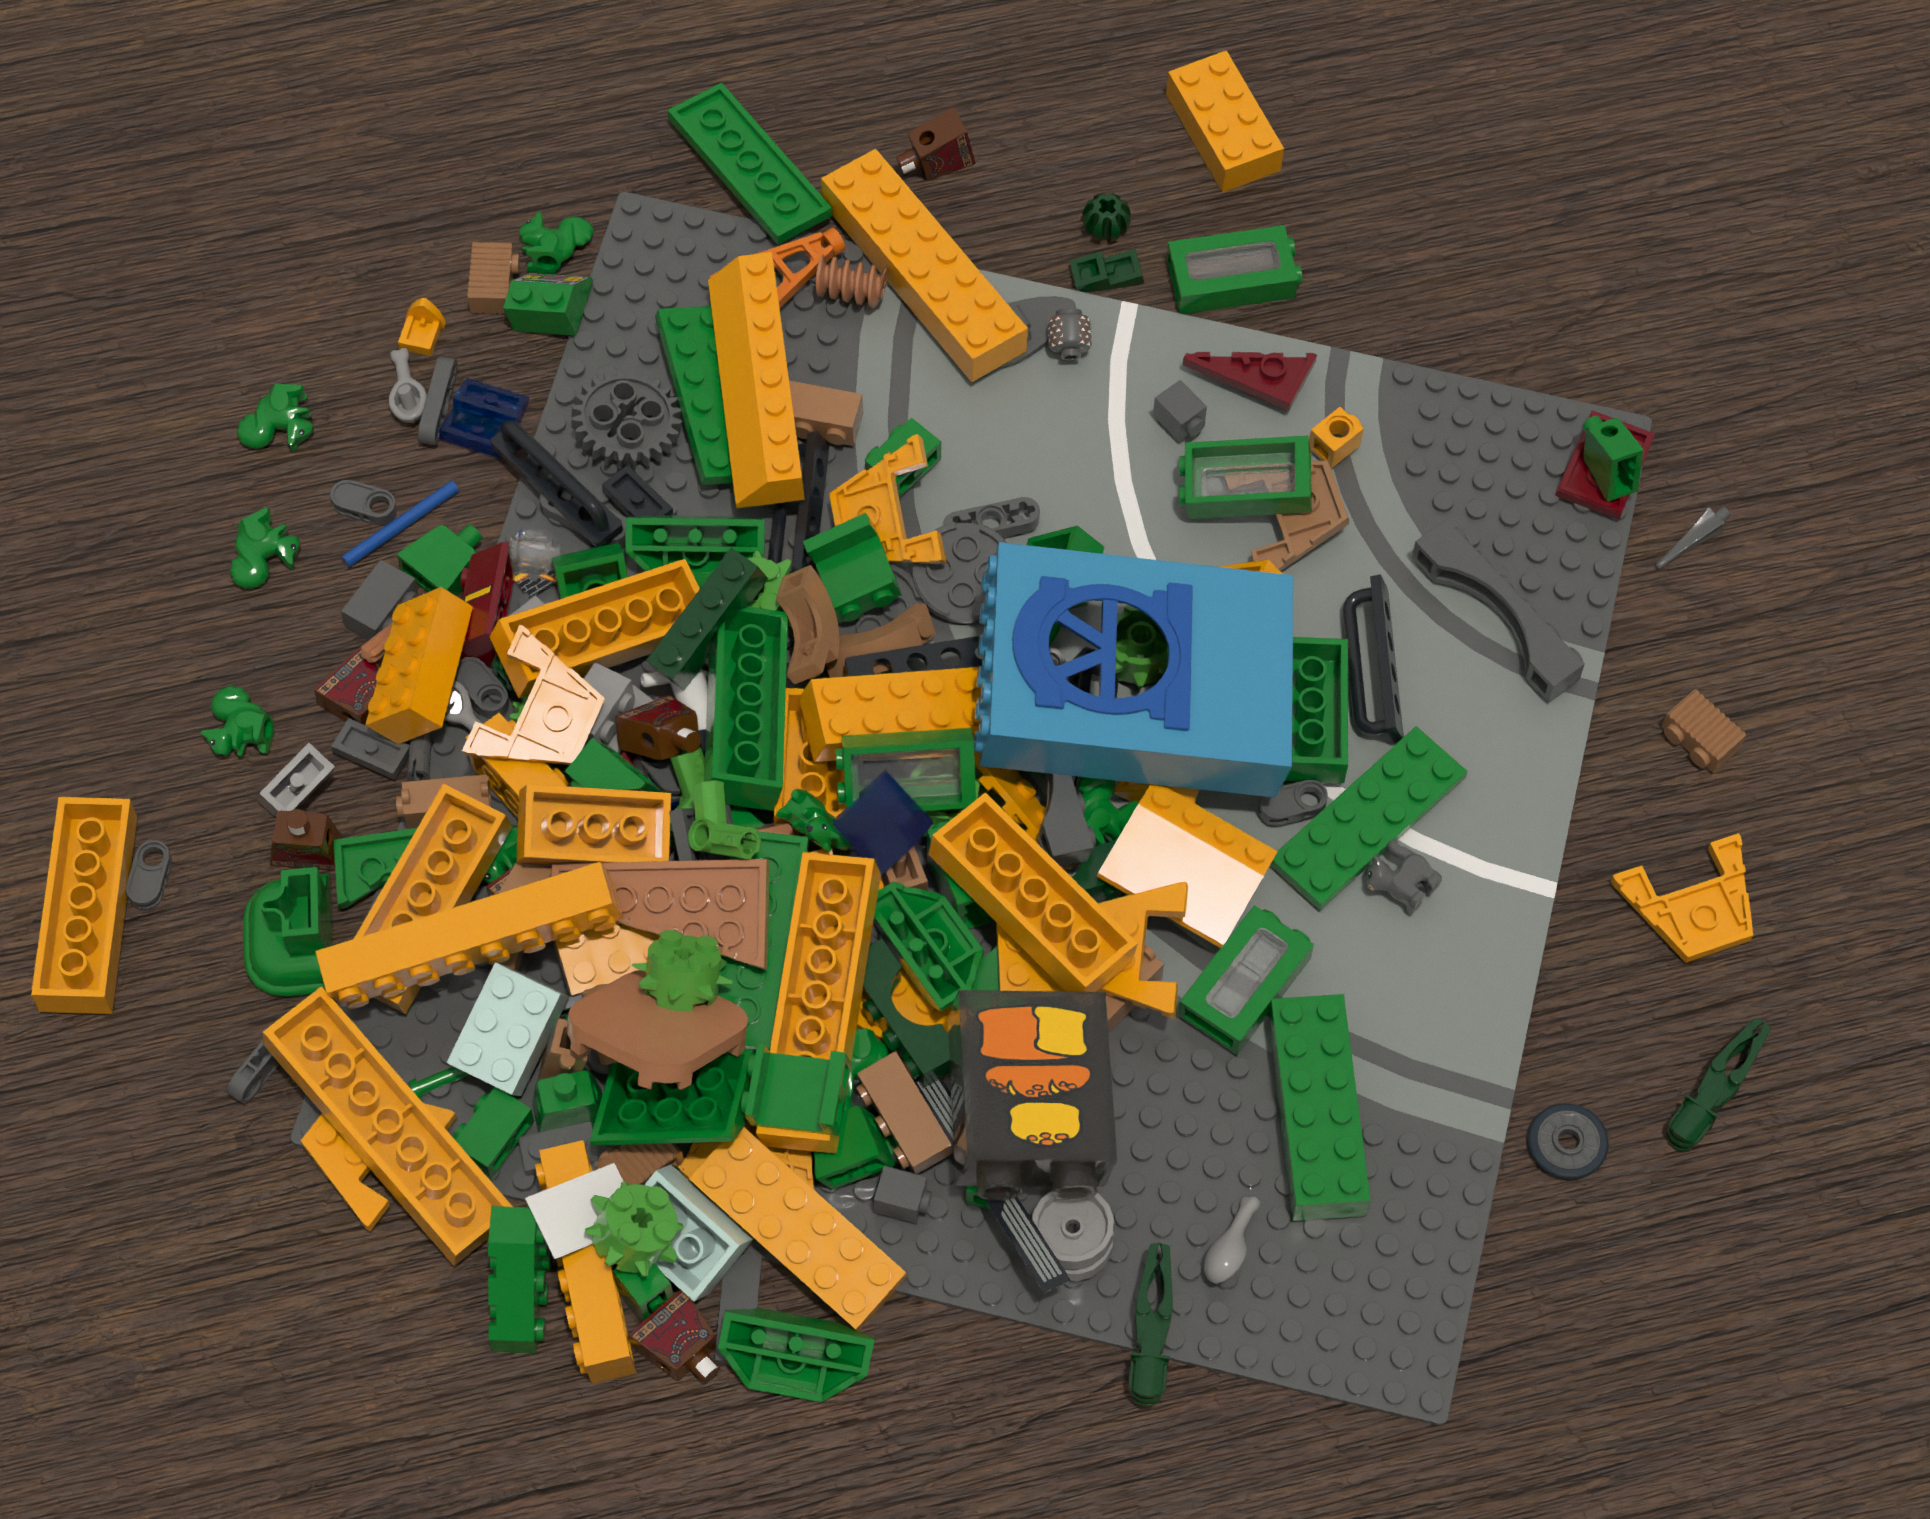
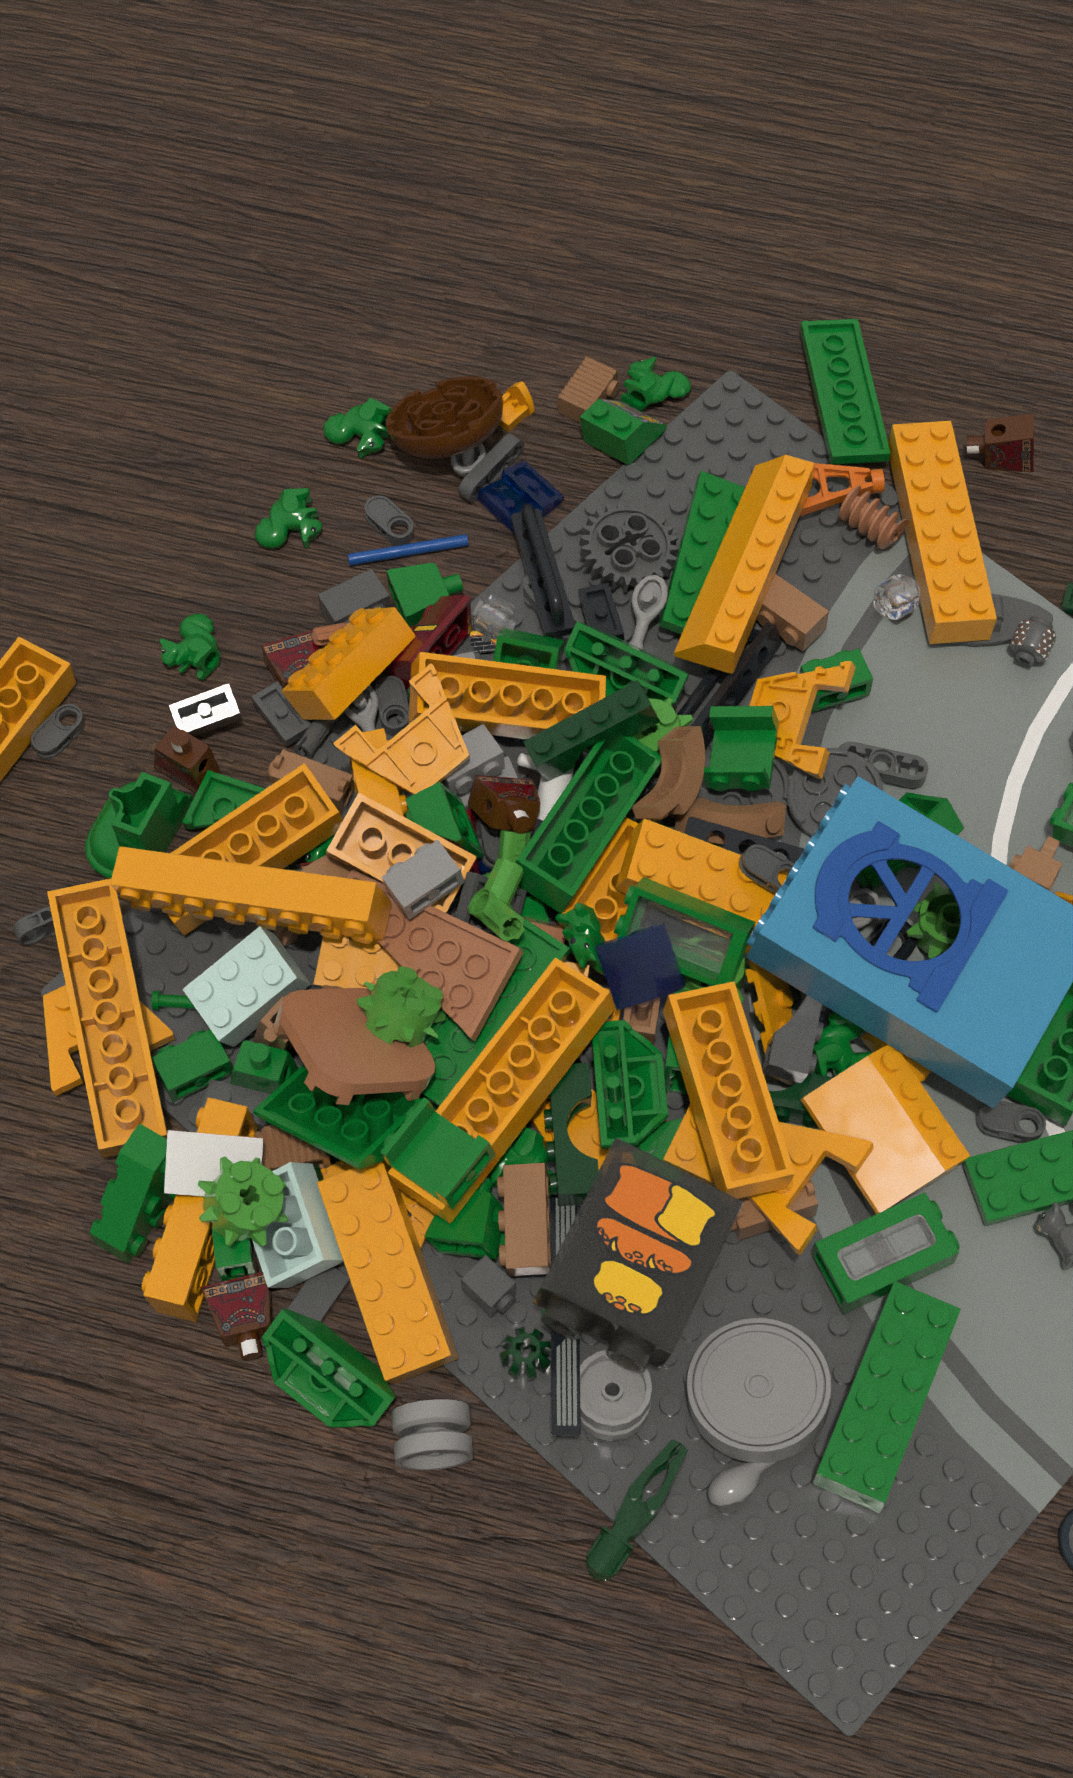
camera: 30 degrees right, 0 degrees up
(367, 369) = (446, 418): none -> reddish brown brick
(634, 838) = (423, 878): none -> light grey brick
(679, 466) = (647, 602): none -> light grey piece
(917, 349) = (896, 596): none -> clear head
(927, 1355) = (432, 1434): none -> light grey wheel
(945, 672) = (763, 866): none -> dark grey piece
(962, 1246) = (536, 1359): none -> dark green piece
(1191, 547) = (1039, 865): none -> medium nougat brick
(1202, 1160) = (759, 1390): none -> light grey brick

